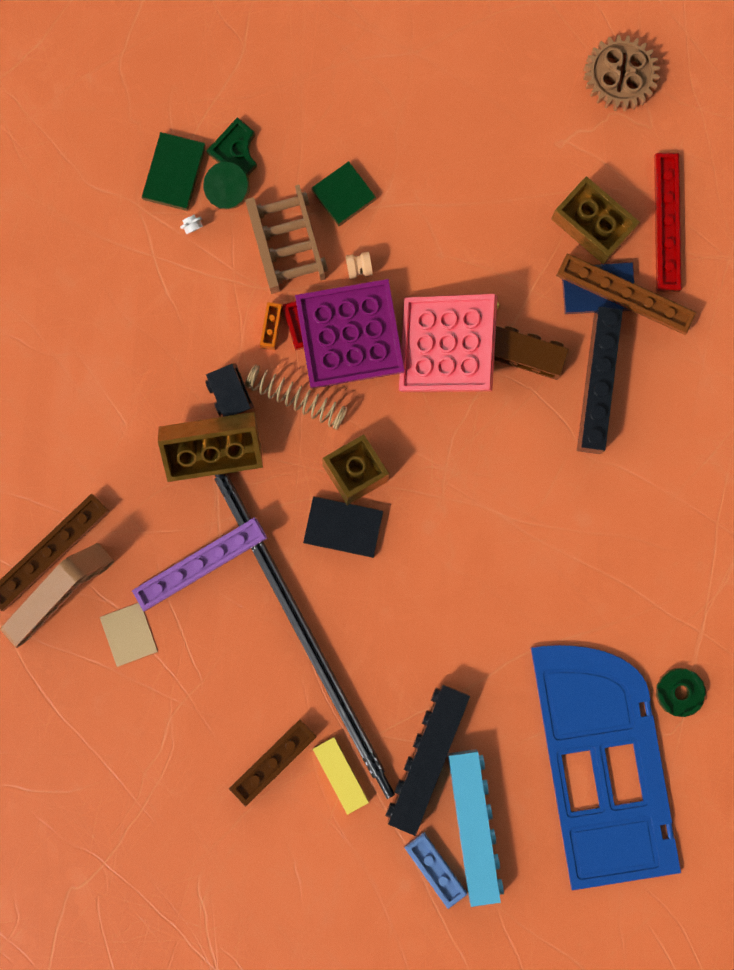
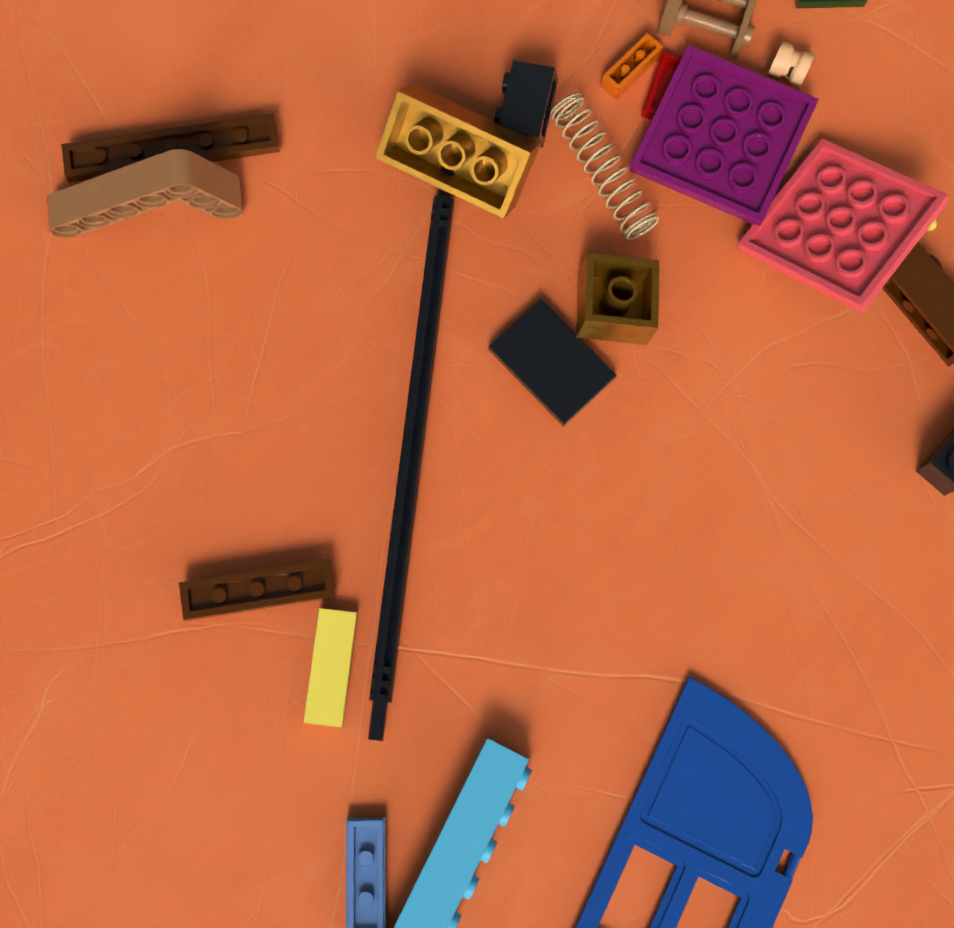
camera: 30 degrees right, 5 degrees down
(128, 634) = (195, 312): tan sticker -> none
(199, 564) = (343, 284): medium lavender tile -> none
(427, 760) = (456, 725): black brick -> none
(666, 692) = (827, 870): dark green tile -> none

